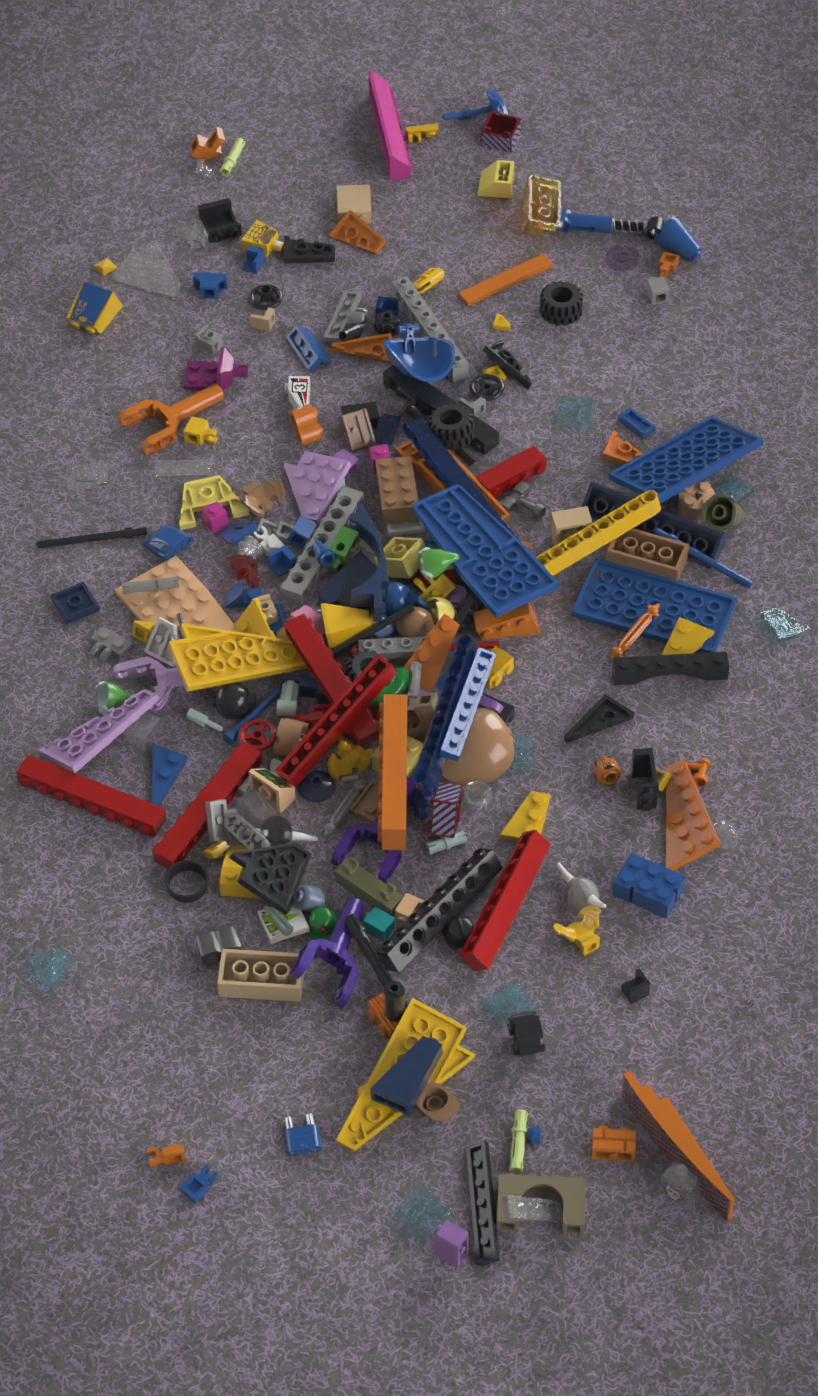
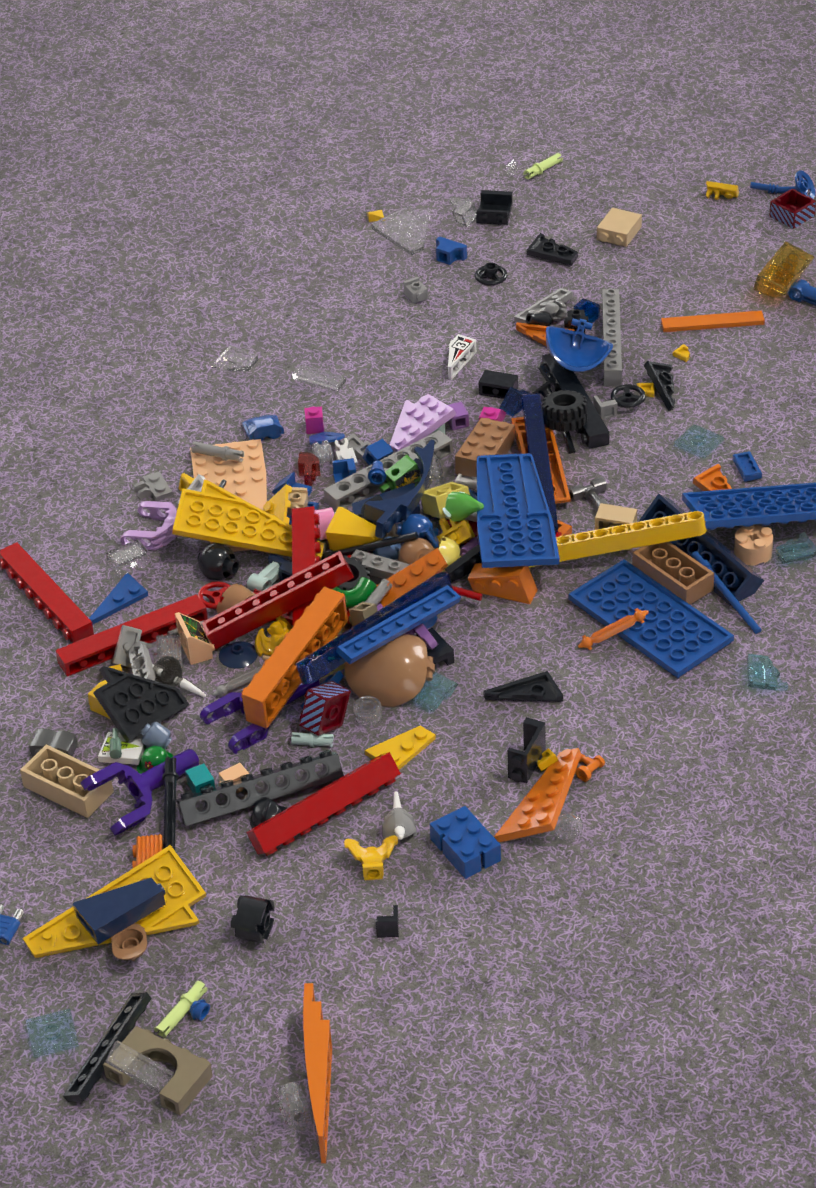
camera: 30 degrees right, 10 degrees down
(75, 602) = (151, 447): dark blue plate -> none
(93, 308) = (337, 239): slope -> none
(97, 733) = (85, 545): lavender wing -> none
(110, 696) = (120, 523): hat -> none
(127, 532) = (235, 410): black bar -> none
(169, 415) = (339, 335): orange piece -> none
(186, 865) = (66, 674): black tyre -> none
(198, 430) = (352, 353): yellow brick -> none
(202, 719) = (182, 568): light aqua axle -> none
(204, 374) = (400, 317): magenta plate -> none
(204, 492) = (332, 405): light yellow wing -> none
(209, 147) = (526, 154): orange brick -> none
(229, 737) = (230, 579): blue bar -> none
(255, 259) = (503, 243): blue panel -> none
(260, 496) = (364, 417): medium nougat animal -> none
(262, 237) = (517, 230): yellow torso -> none
(263, 322) = (473, 291): tan panel -> none
(305, 424) = (443, 374): orange brick -> none
(307, 347) = (496, 321): blue panel -> none
(357, 233) = (605, 249): orange wing -> none
(358, 429) = (486, 391): medium nougat plate -> none
(367, 886) = (212, 745): olive brick -> none
(389, 128) = (692, 177): dark pink slope -> none
(394, 1000) = (149, 837): black brick -> none
(428, 279) = (641, 300): yellow arm -> none
(451, 1243) = (48, 1065): medium lavender brick -> none
(497, 180) = (762, 243): light yellow slope -> none
(502, 665) = (463, 615): yellow brick -> none
(509, 1001) = (269, 888): clear light blue wing -> none
(512, 471) = (609, 466): red brick -> none
(561, 303) = (746, 351): black tyre -> none
(607, 770) = (501, 733): orange head -> none
(613, 1143) = (263, 1047): orange brick -> none
(640, 668) = (658, 679): black arch -> none
(686, 638) = (652, 652): yellow wing -> none
(722, 512) = (767, 558): olive cone -> none

